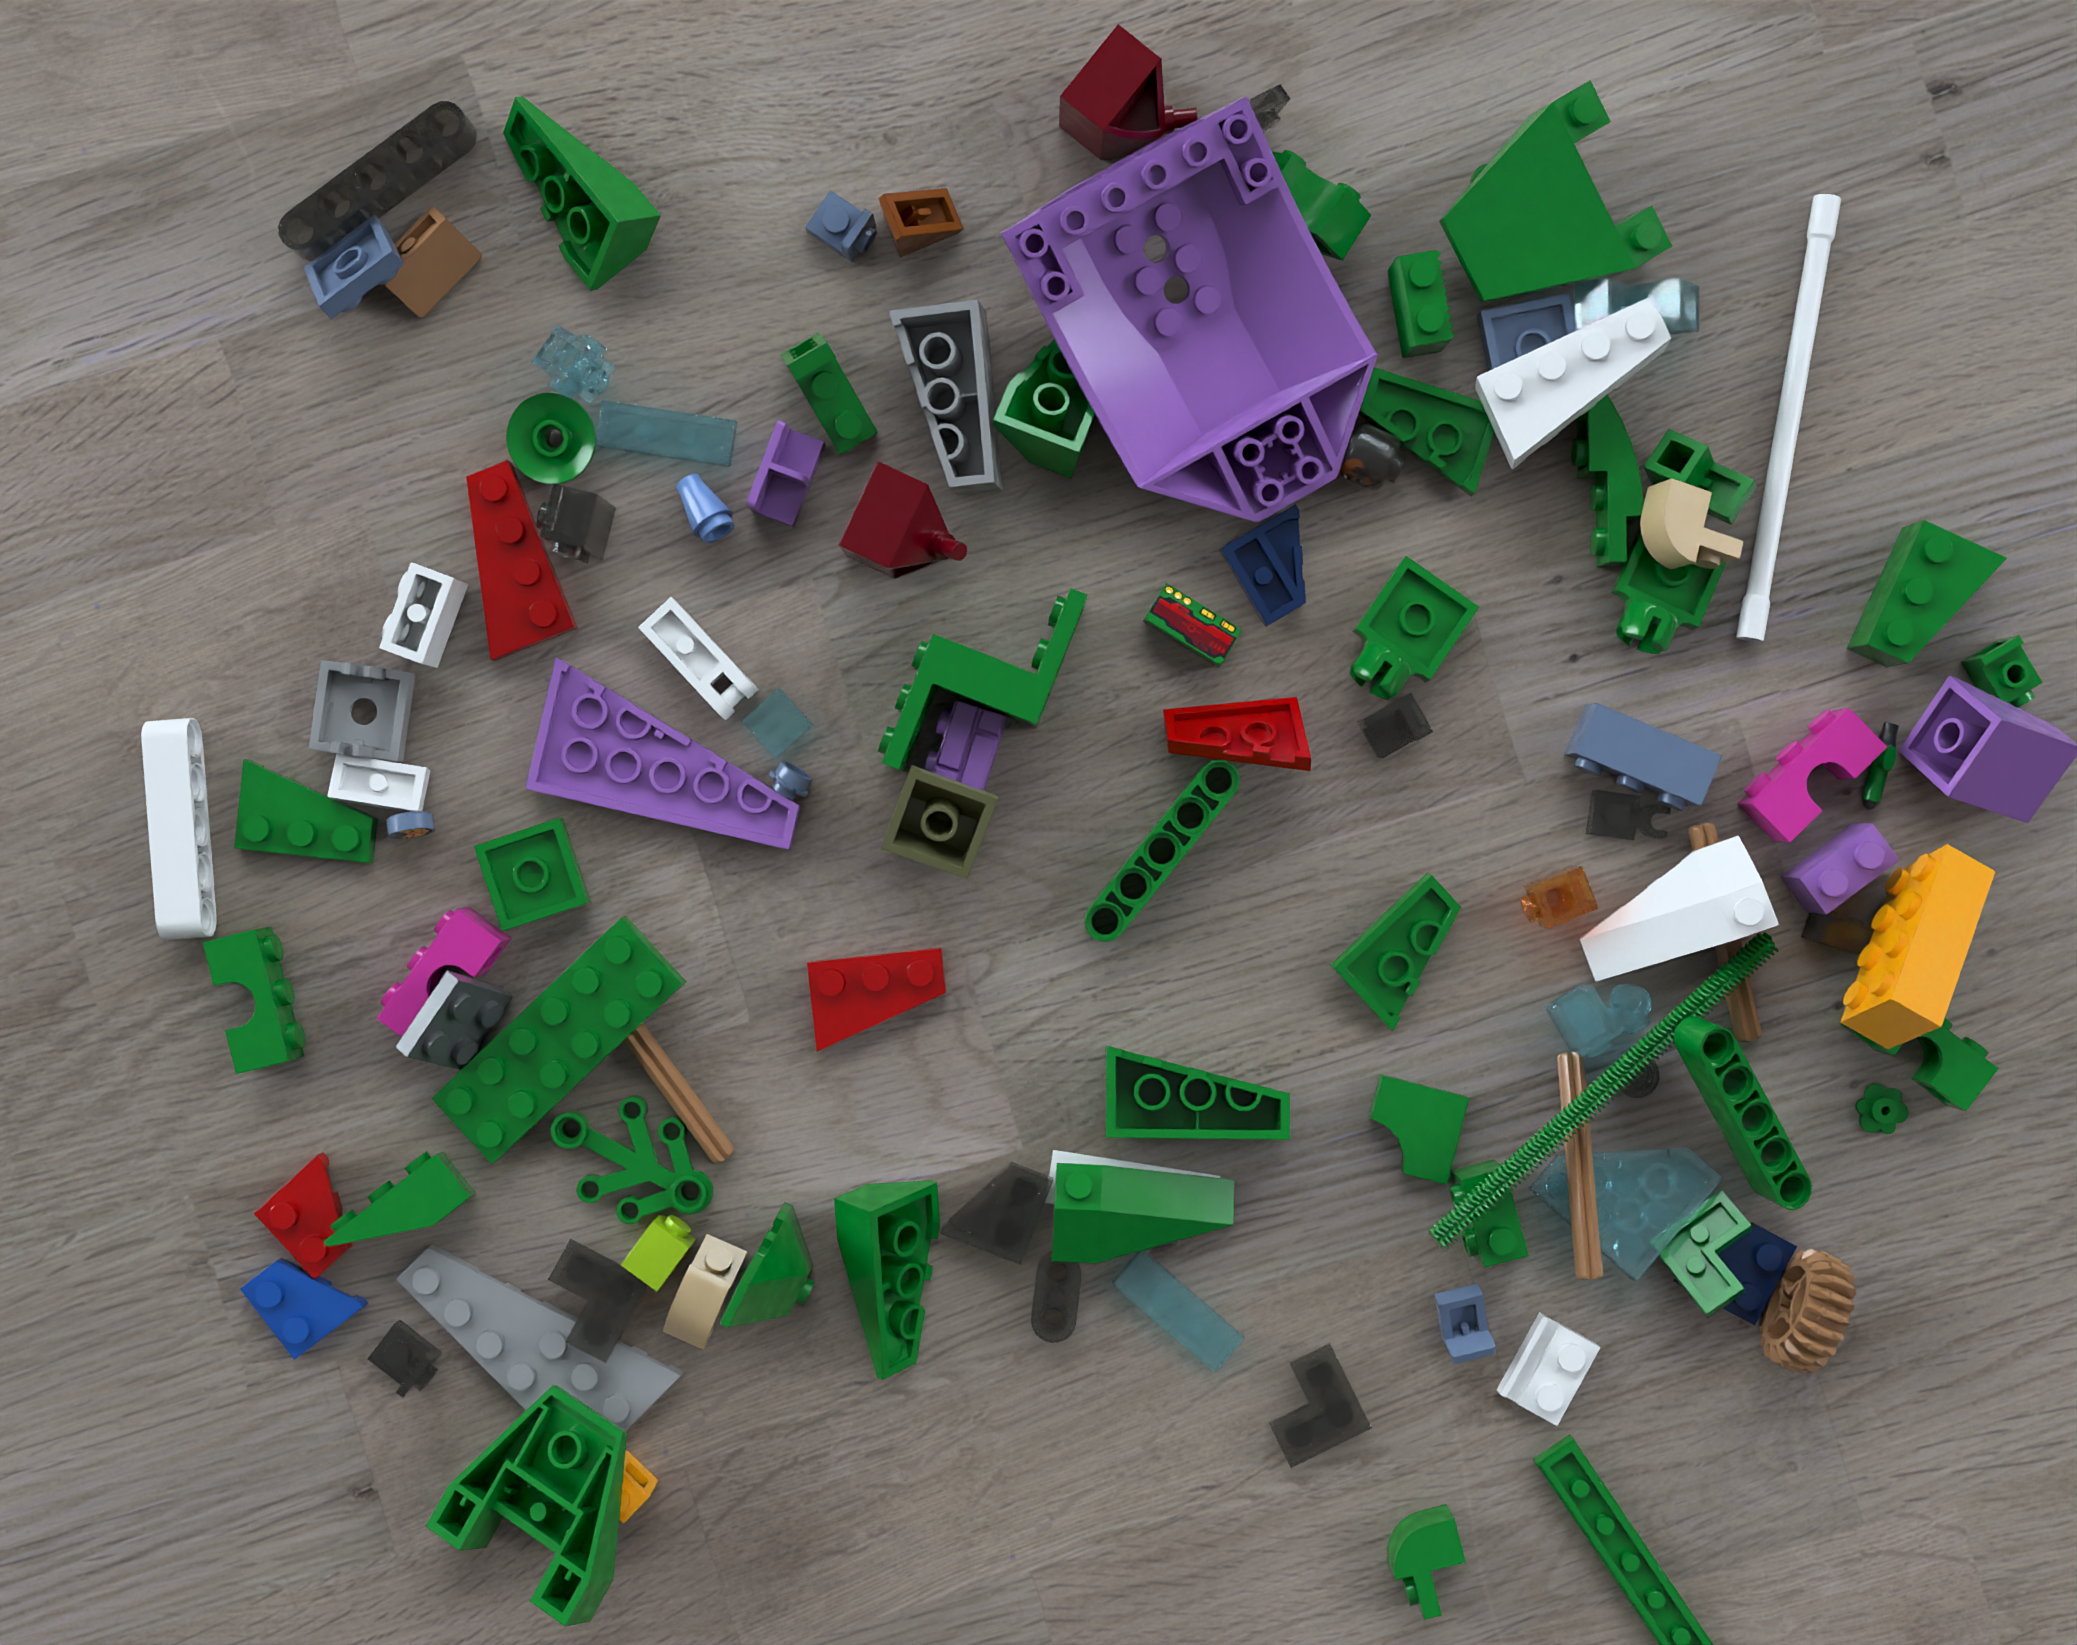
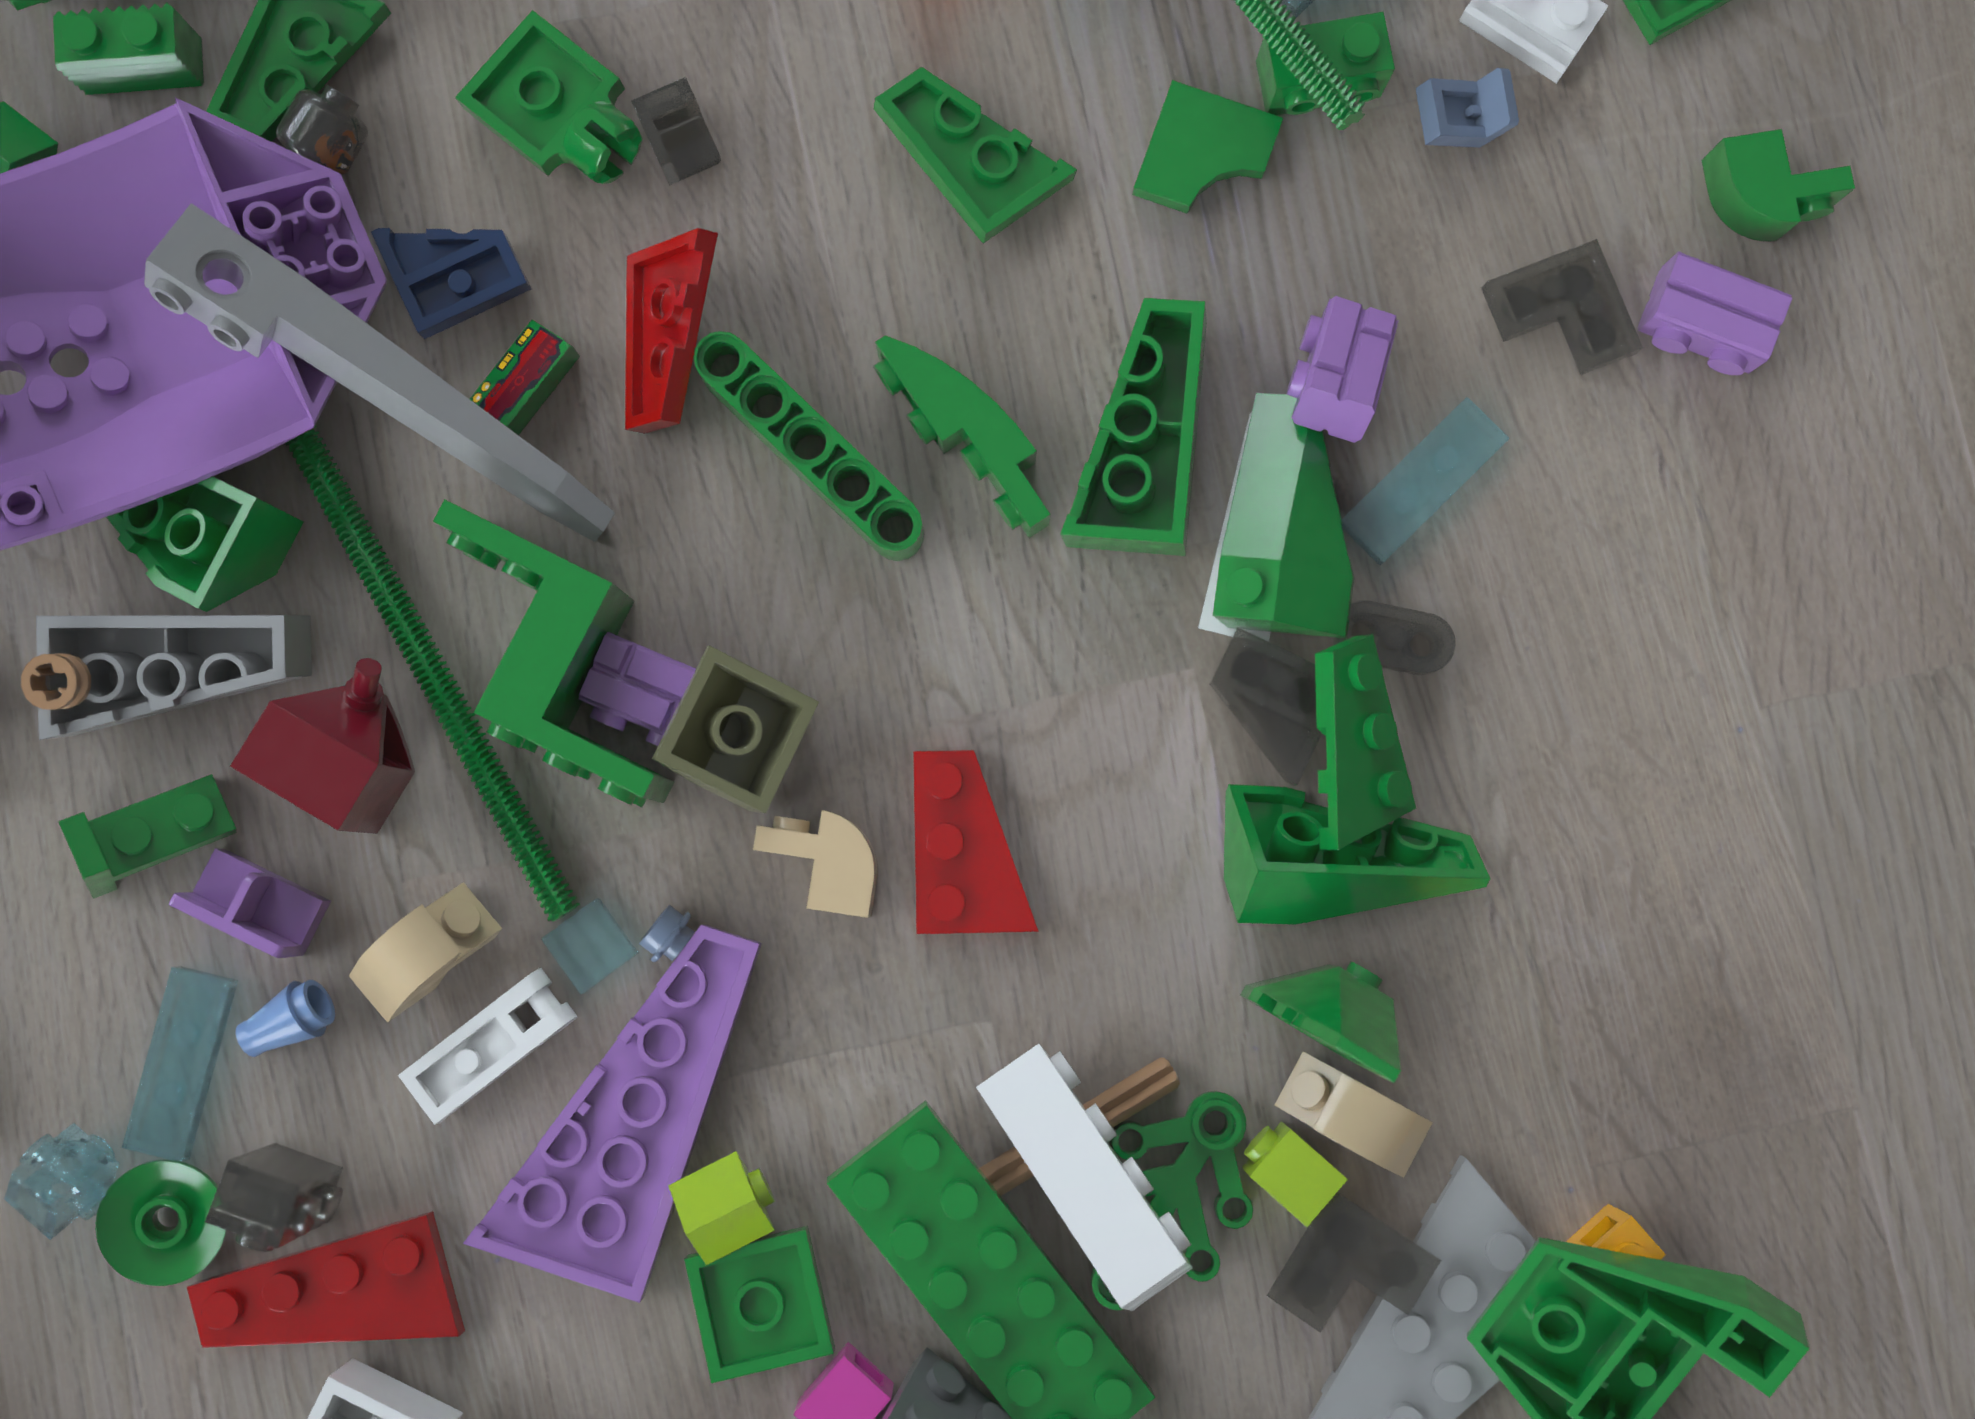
camera: 85 degrees left, 5 degrees down
(598, 843) = (723, 1207): none -> lime brick
(642, 1102) = (1084, 1177): none -> white wedge
(761, 605) = (421, 950): none -> tan brick
(855, 904) = (842, 866): none -> tan brick
(917, 317) = (34, 681): none -> medium nougat bush
(942, 602) = (365, 556): none -> green axle
(965, 1281) = (1364, 754): none -> green wing
(1199, 954) = (957, 411): none -> green slope
(1217, 466) = (305, 320): none -> light grey piece
(1253, 1244) = (1343, 369): none -> medium lavender brick
(1321, 1519) = (1713, 315): none -> medium lavender brick

